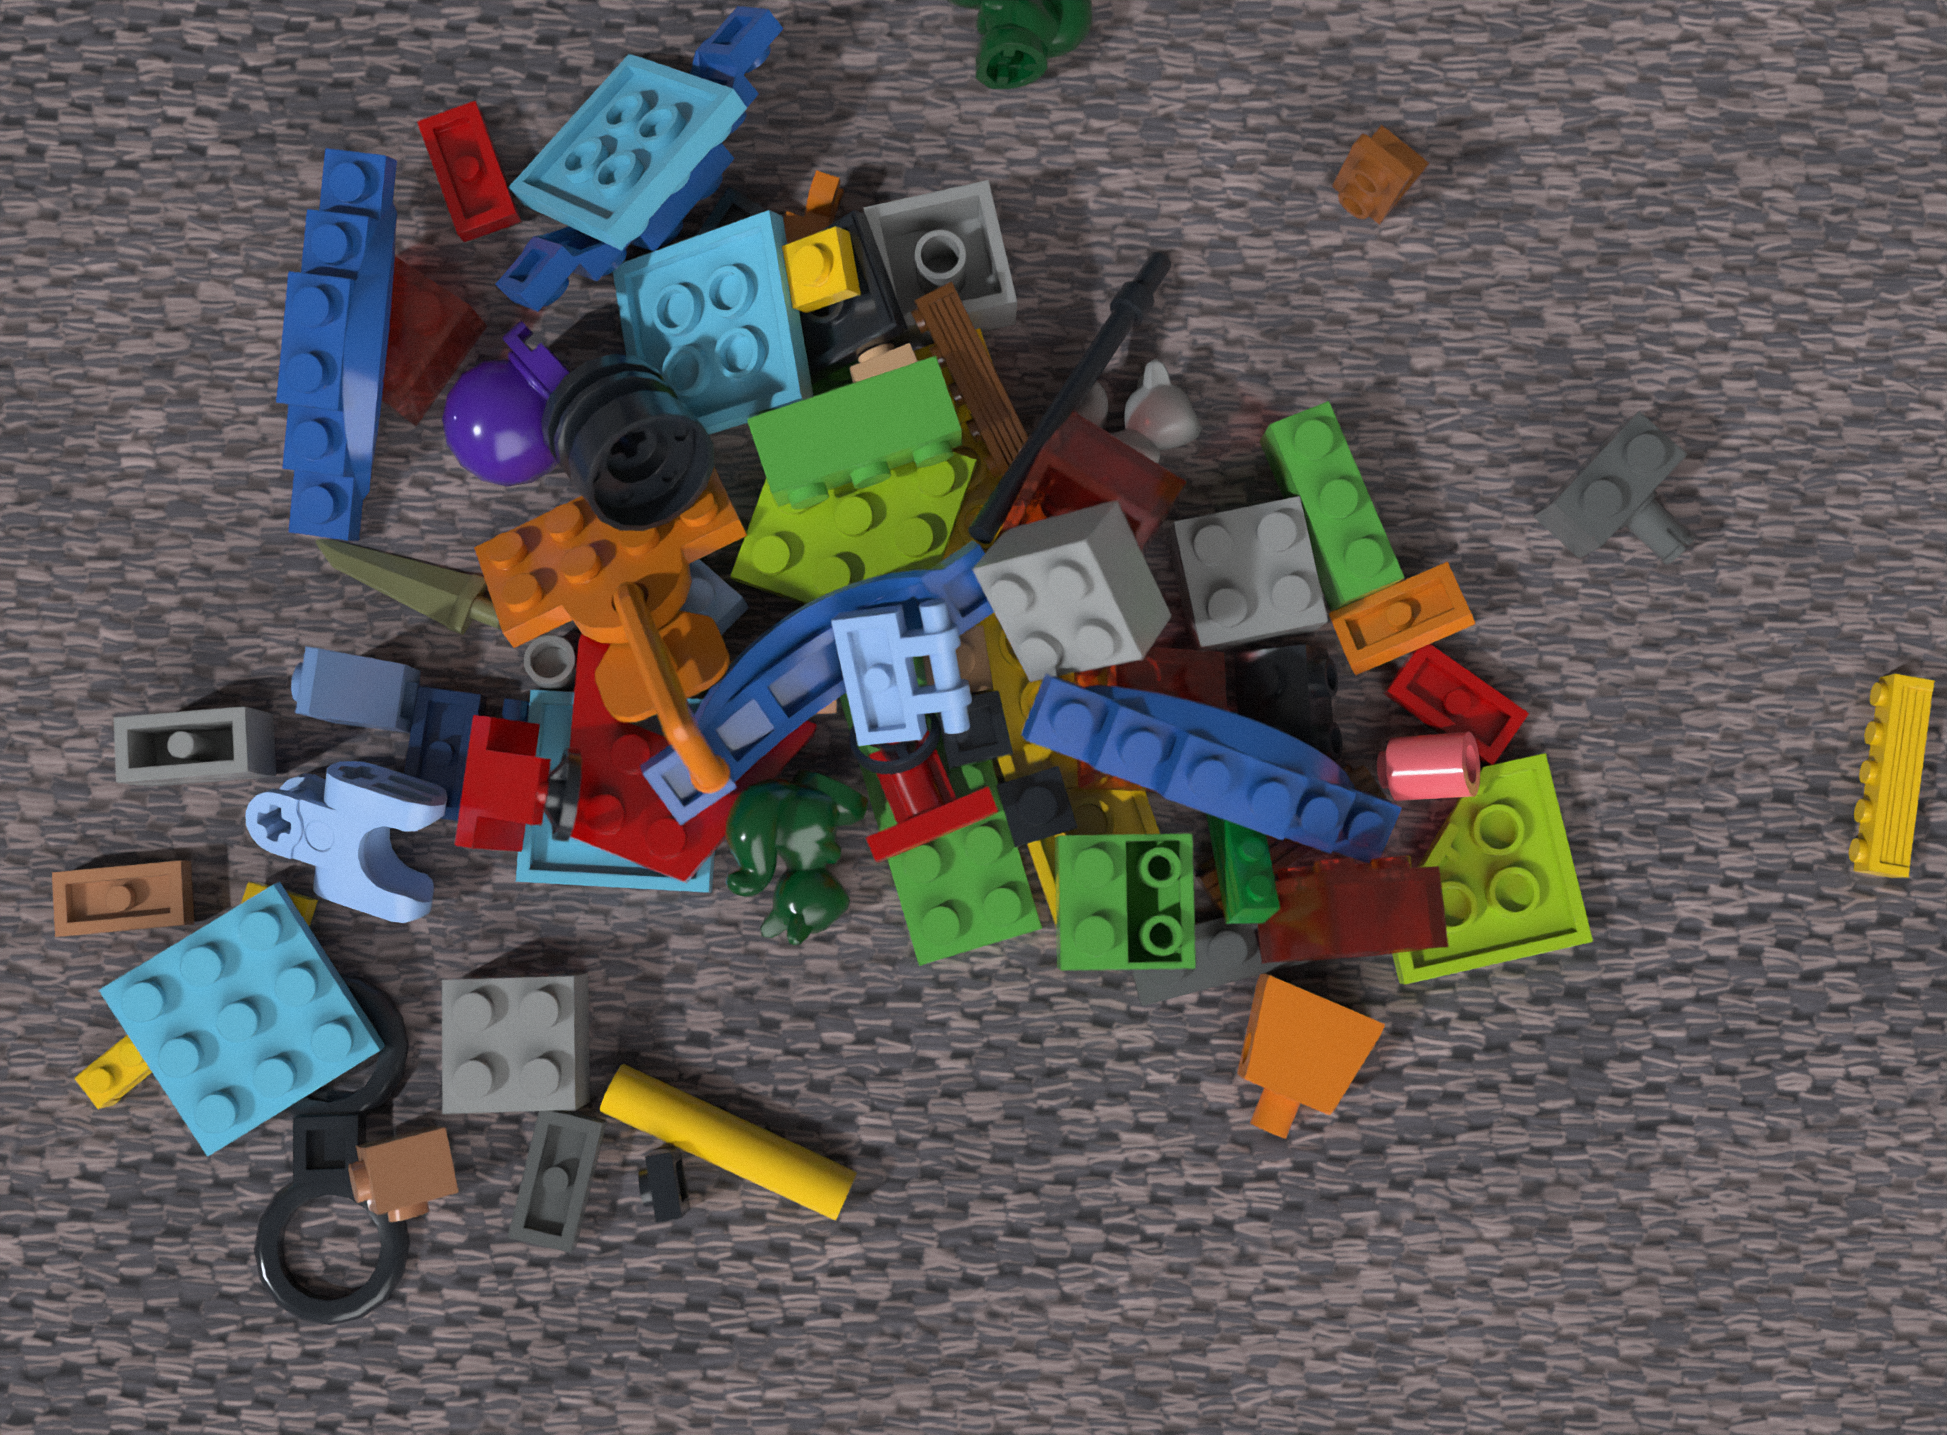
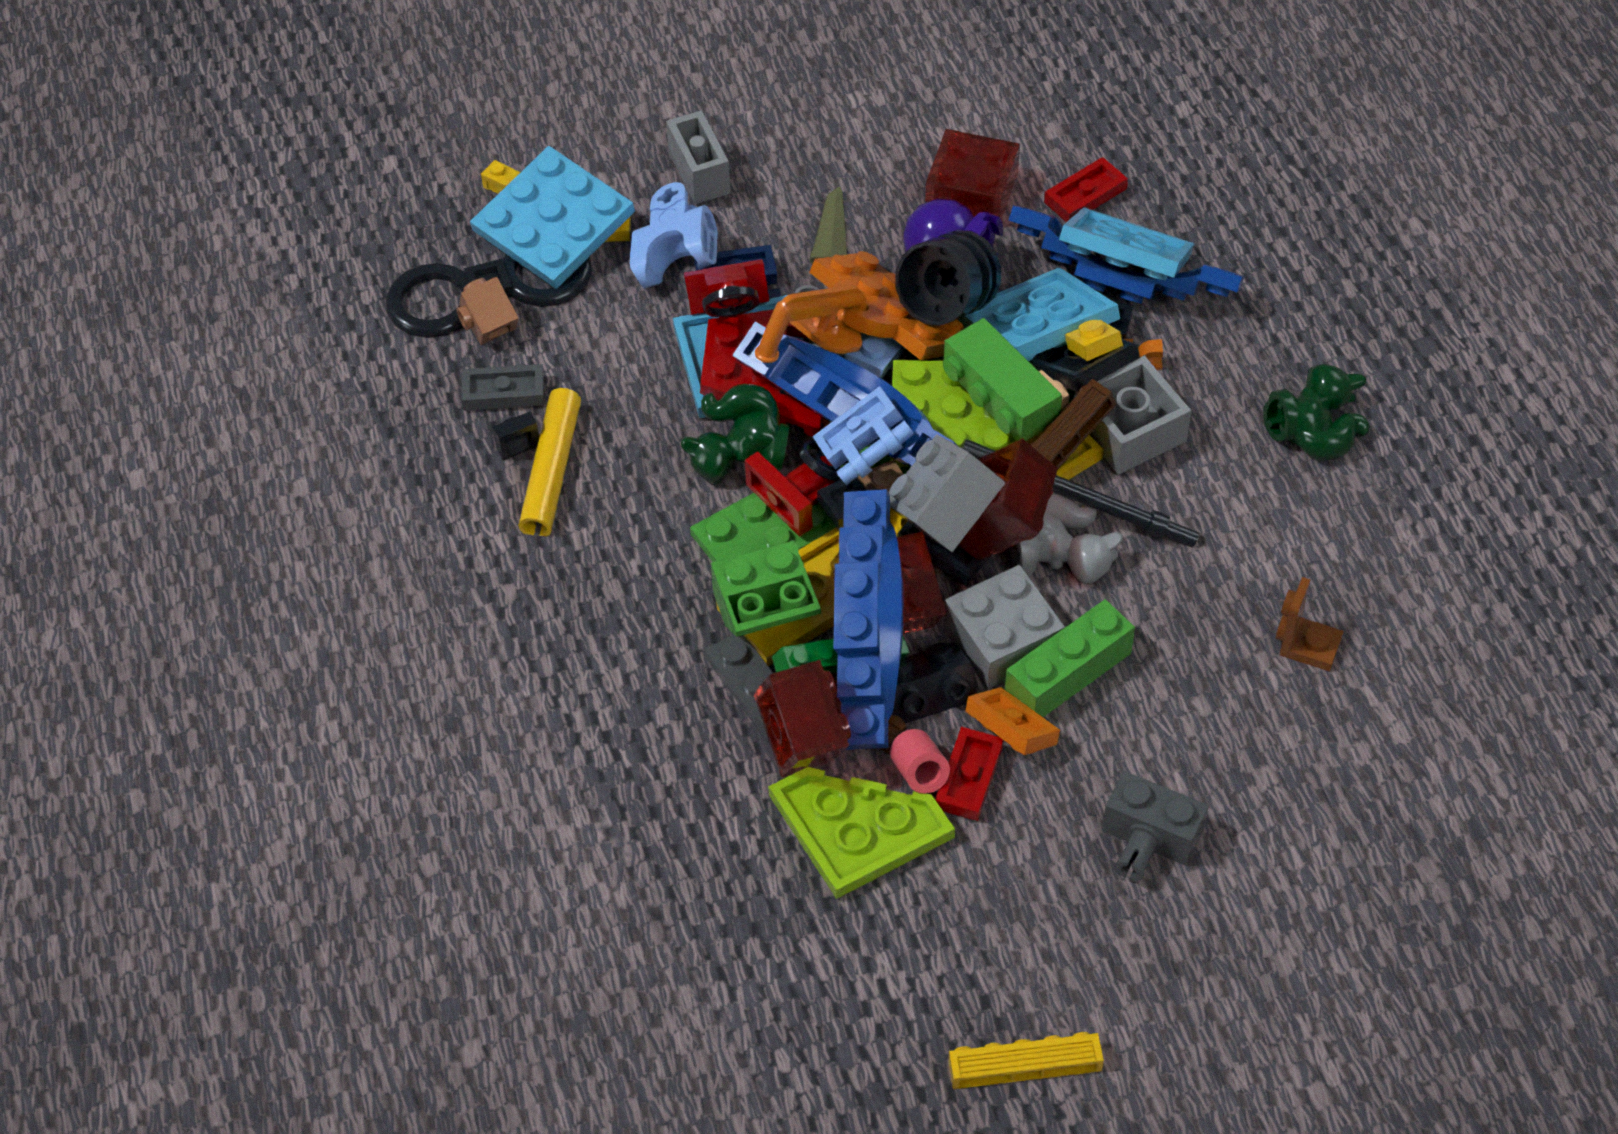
camera: 75 degrees right, 30 degrees down
(123, 898) = (602, 154): nougat plate -> none
(338, 343) = (949, 143): blue piece -> none
(355, 690) = (756, 209): medium blue slope -> none
(515, 1043) = (578, 341): light grey brick -> none
(1036, 806) = (814, 548): black plate -> none
(1301, 1052) = (704, 739): orange torso -> none

